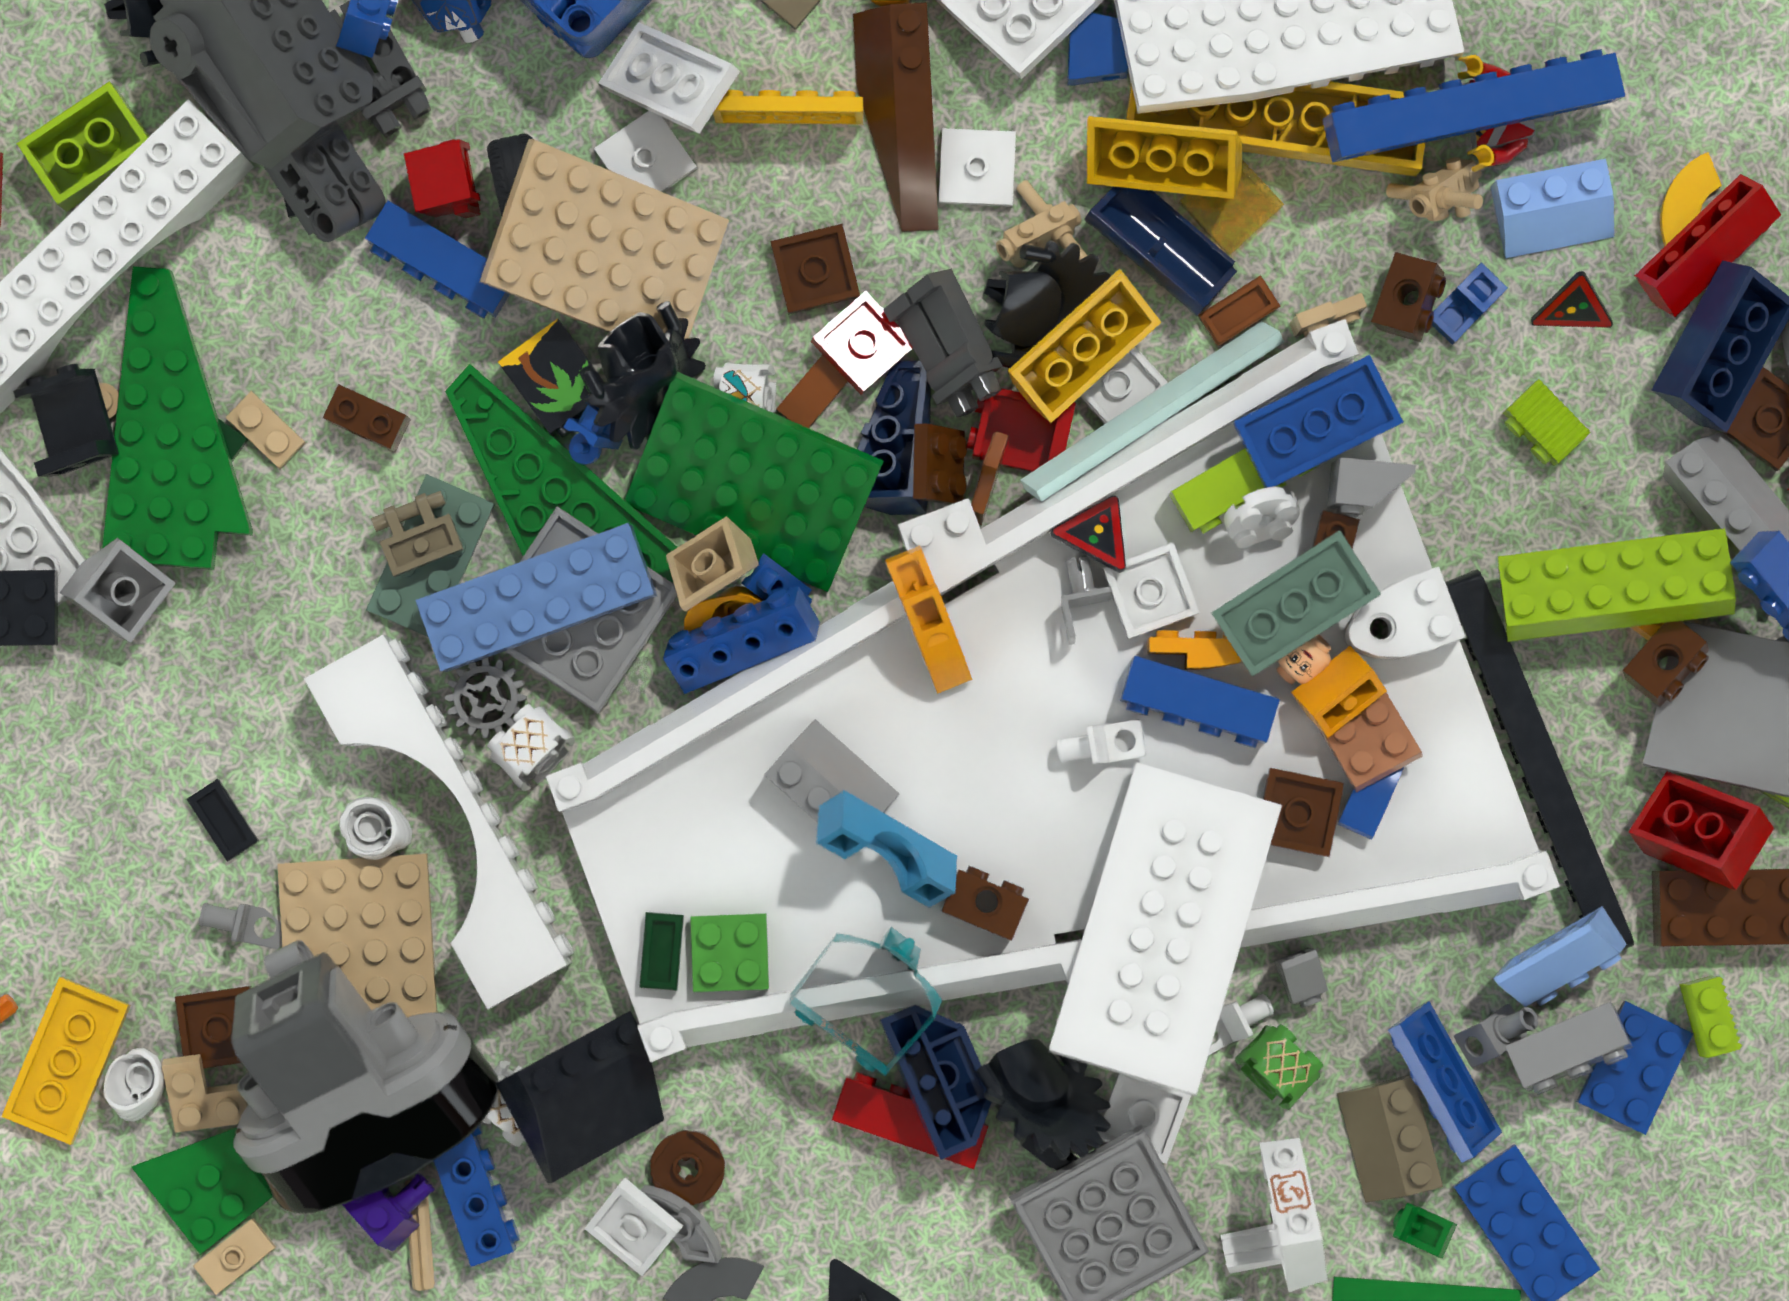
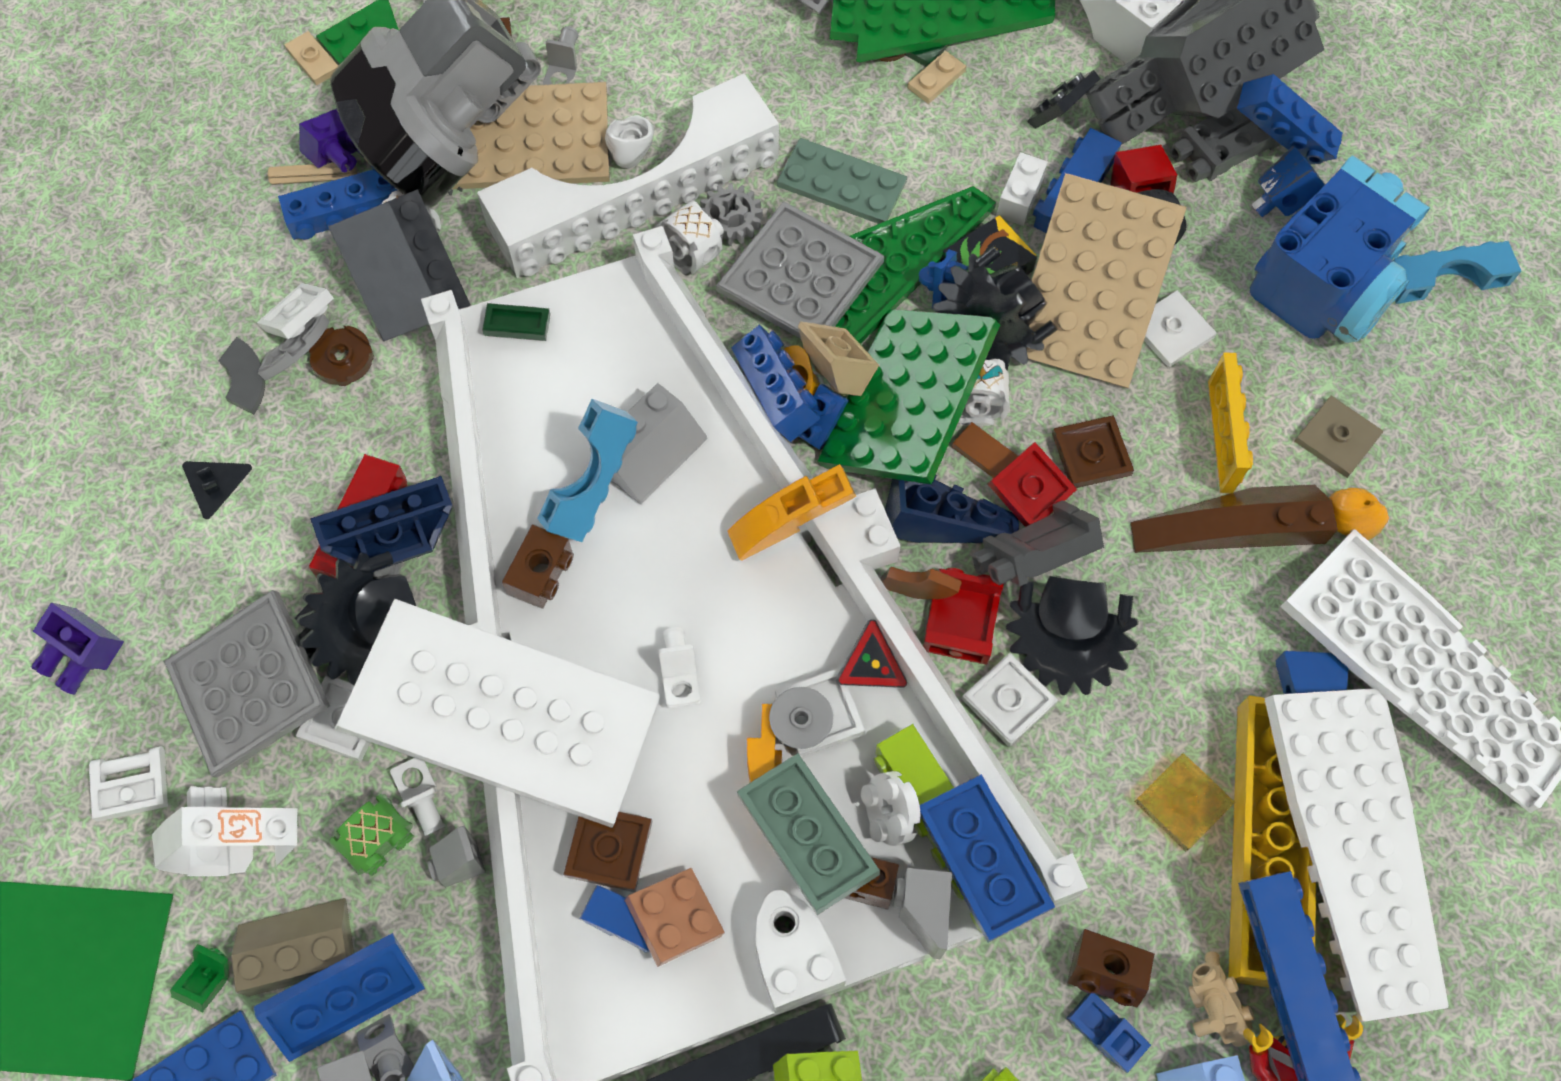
camera: 90 degrees right, 20 degrees down
(222, 820) = (641, 51): black tile -> none
(320, 269) = (1063, 98): none -> black plate
(366, 418) = (949, 134): reddish brown brick -> none
(422, 543) = (852, 165): dark tan plate -> none
(451, 330) = (1021, 189): none -> white brick
(536, 598) = (810, 234): medium blue brick -> none
(669, 77) = (1244, 330): white plate -> none
(729, 952) = (511, 371): bright green plate -> none
(902, 949) = (494, 486): teal piece -> none
(939, 464) = (930, 539): reddish brown plate -> none
(977, 167) = (1193, 583): white plate -> none
(1048, 224) = (1148, 634): tan piece -> none
(1082, 592) = (815, 651): light grey bracket -> none
(1083, 347) = (1045, 653): yellow slope -> none
(1152, 411) = (988, 724): light aqua tile -> none
(1163, 157) = (1225, 730): yellow slope -> none
(1163, 245) = (1140, 736): dark blue container -> none
(1184, 602) = (806, 703): none -> light grey piece
(1199, 700) = (716, 755): blue brick -> none
(1239, 311) = (1083, 810): dark orange tile -> none
(1305, 661) = (754, 853): light nougat head -> none
(1328, 313) = (1091, 904): tan plate -> none
(1339, 692) = (722, 883): light orange brick -> none

